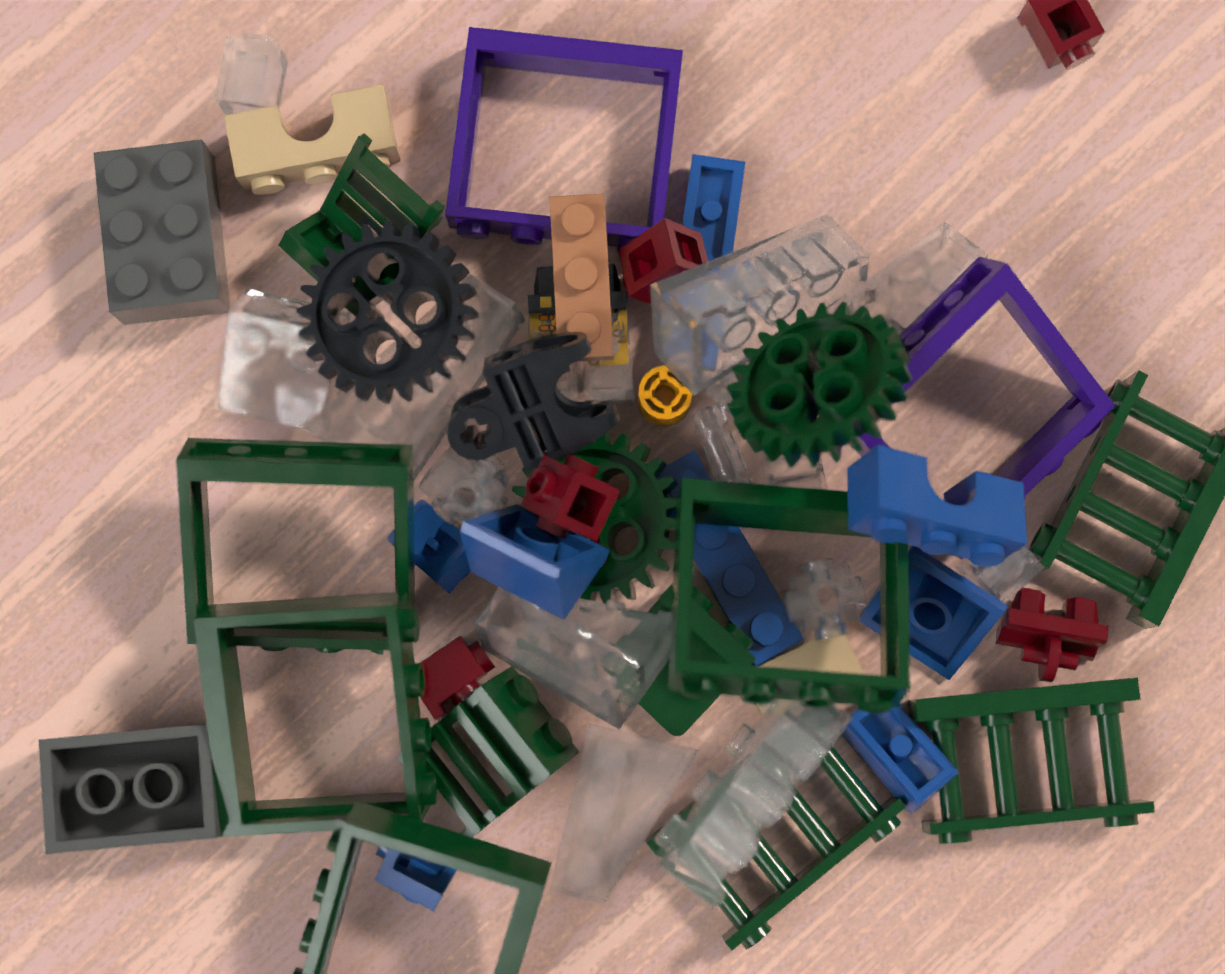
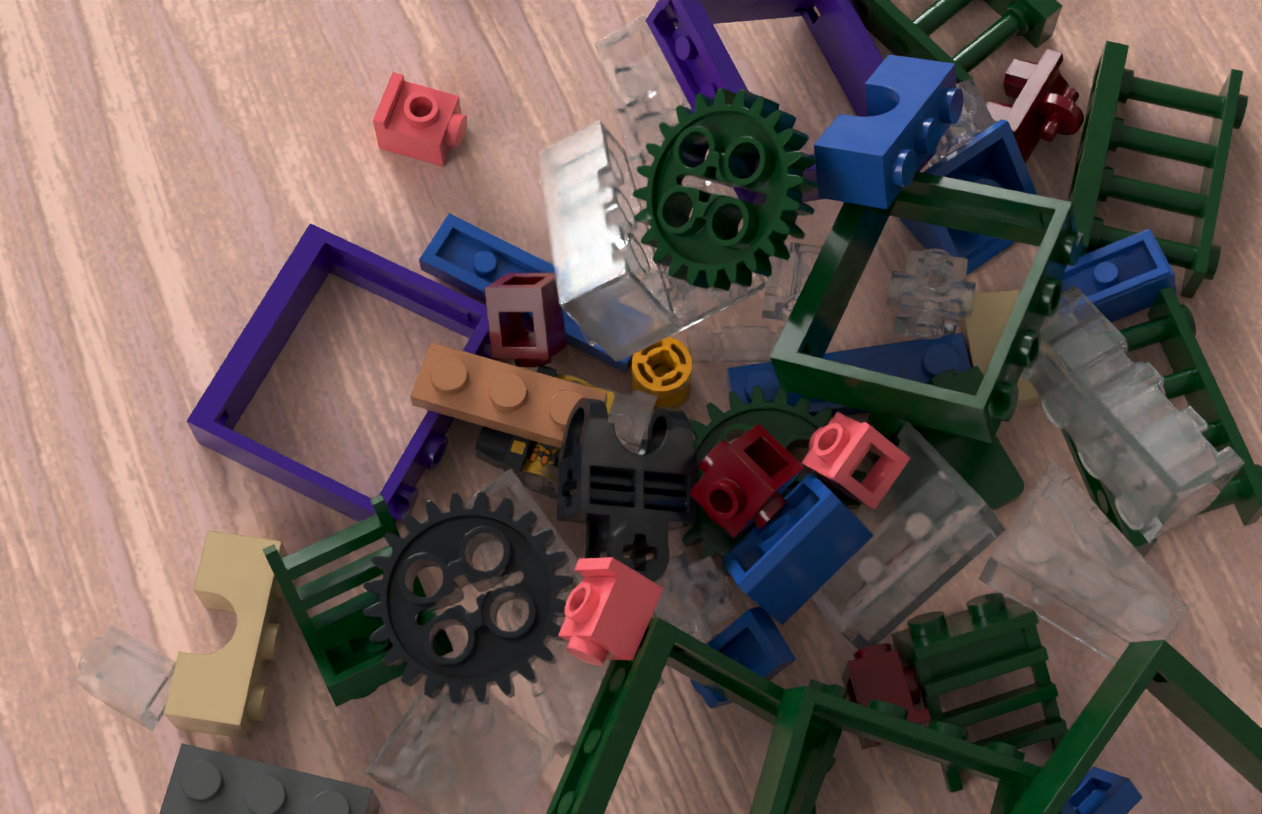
camera: 70 degrees left, 15 degrees down
(403, 425) = (608, 611): none -> coral brick
(627, 566) = (841, 447): none -> coral brick
(826, 80) = (418, 121): none -> coral brick

